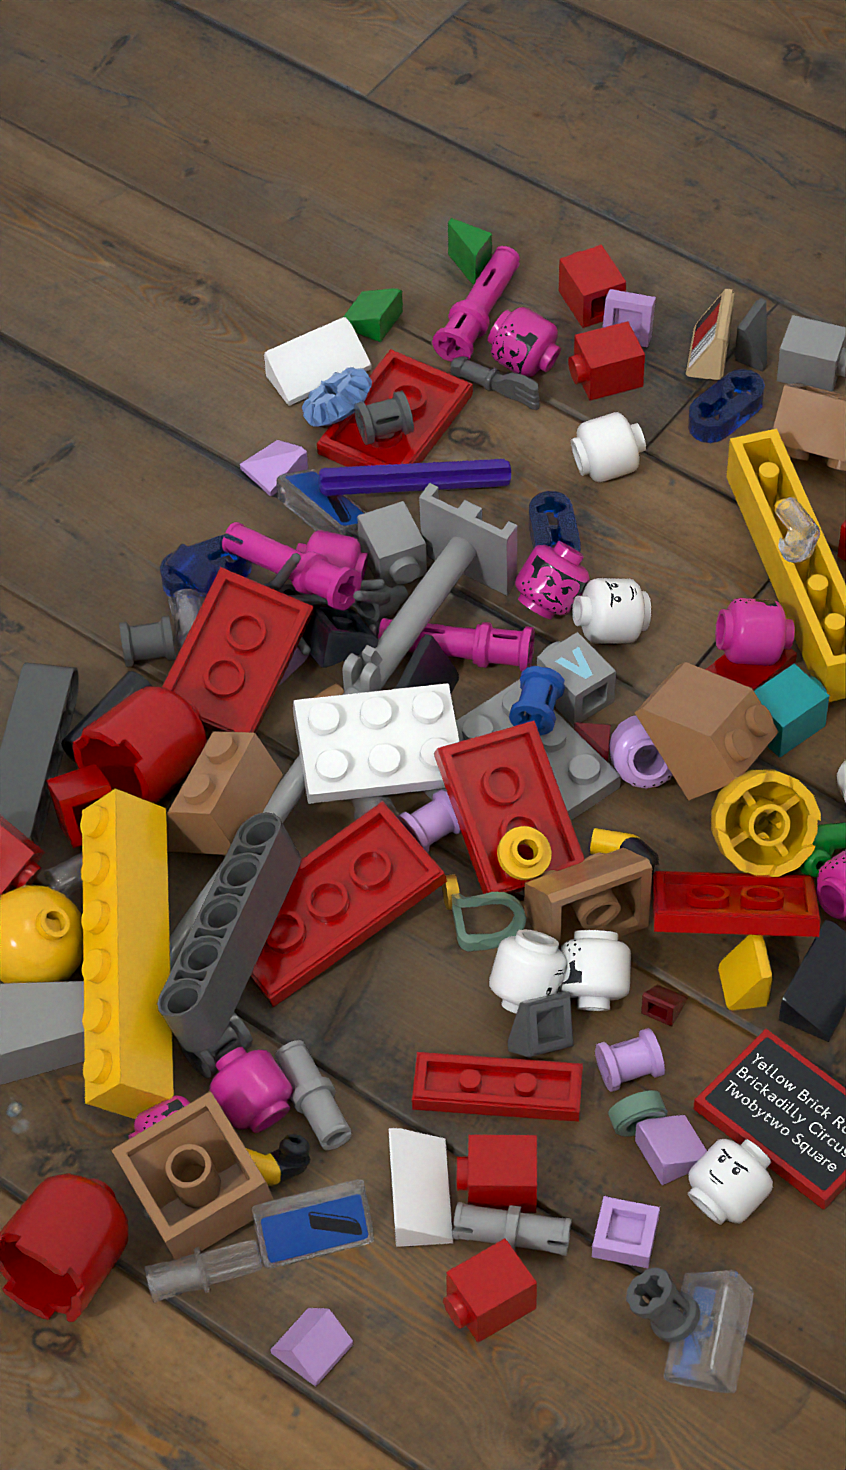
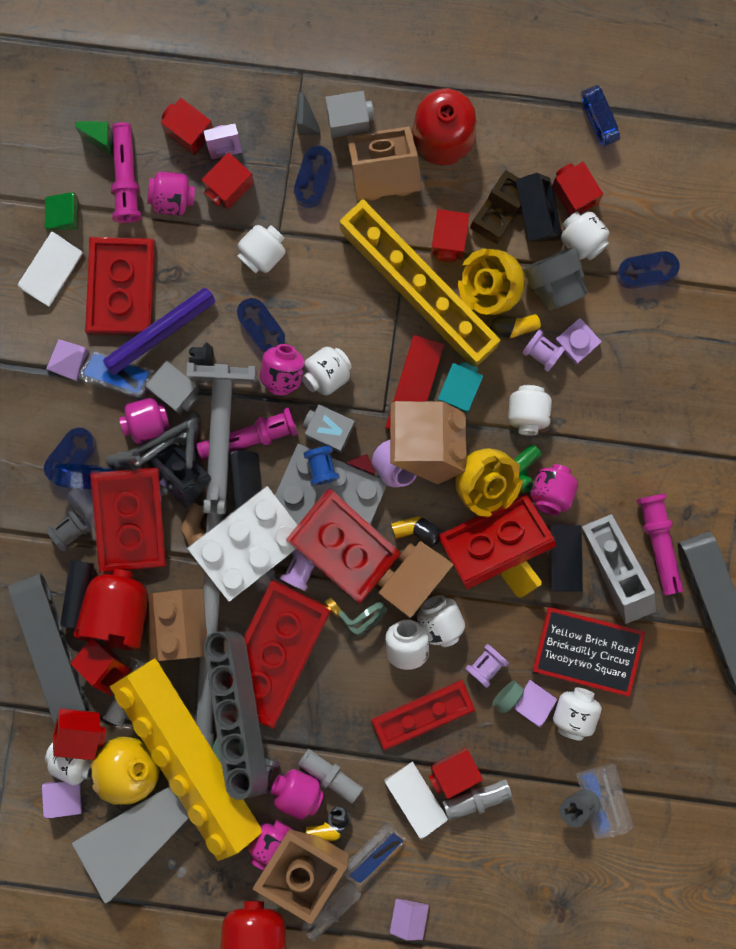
camera: 30 degrees left, 30 degrees up
(312, 573) = (138, 444): dark pink pin -> none
(336, 397) = (88, 288): medium blue gear -> none
(384, 417) = (119, 300): dark grey bush -> none
(490, 1291) = (486, 845): red brick -> none
(510, 385) = (162, 228): dark grey piece -> none
(513, 863) = (359, 574): yellow plate -> none
(542, 1025) = (431, 671): dark grey slope -> none
(625, 1232) = (537, 770): lavender plate -> none
(662, 1004) = (484, 613): dark red piece -> none
(711, 339) = (281, 134): tan slope -> none
(754, 631) = (418, 351): dark pink head -> none
(801, 532) = (419, 277): clear arm -> none

